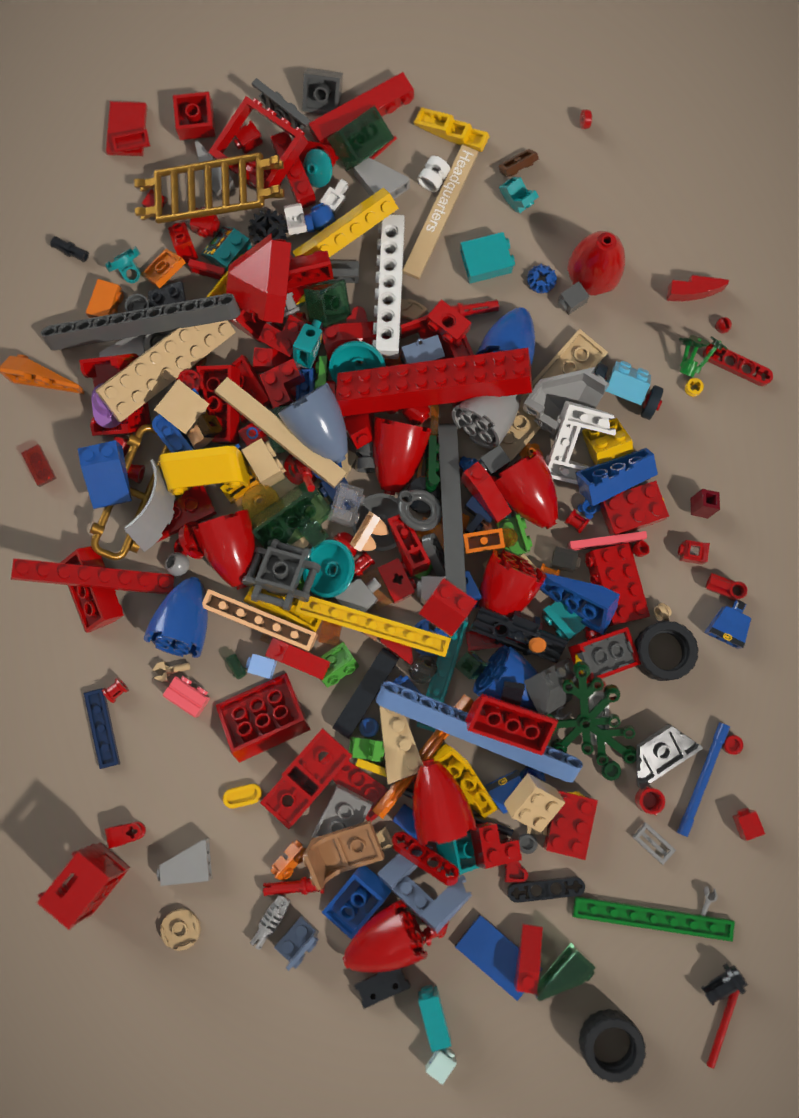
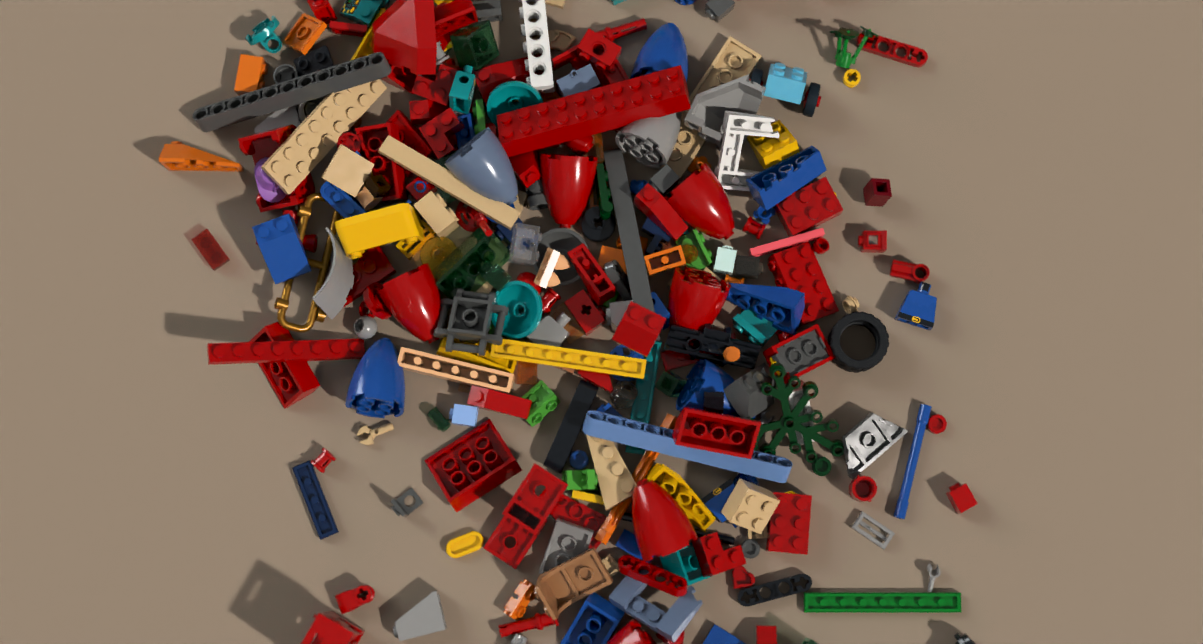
camera: 10 degrees left, 0 degrees up
(69, 249) = (205, 27): black pin -> none
(183, 746) = (399, 505): none -> dark grey bracket
(186, 696) = (394, 455): coral brick -> none
(357, 315) = (507, 53): red tile -> none
(409, 520) = (597, 224): dark grey piece -> none
(543, 549) = (724, 260): none -> light aqua brick
(720, 325) = (869, 12): red hinge -> none

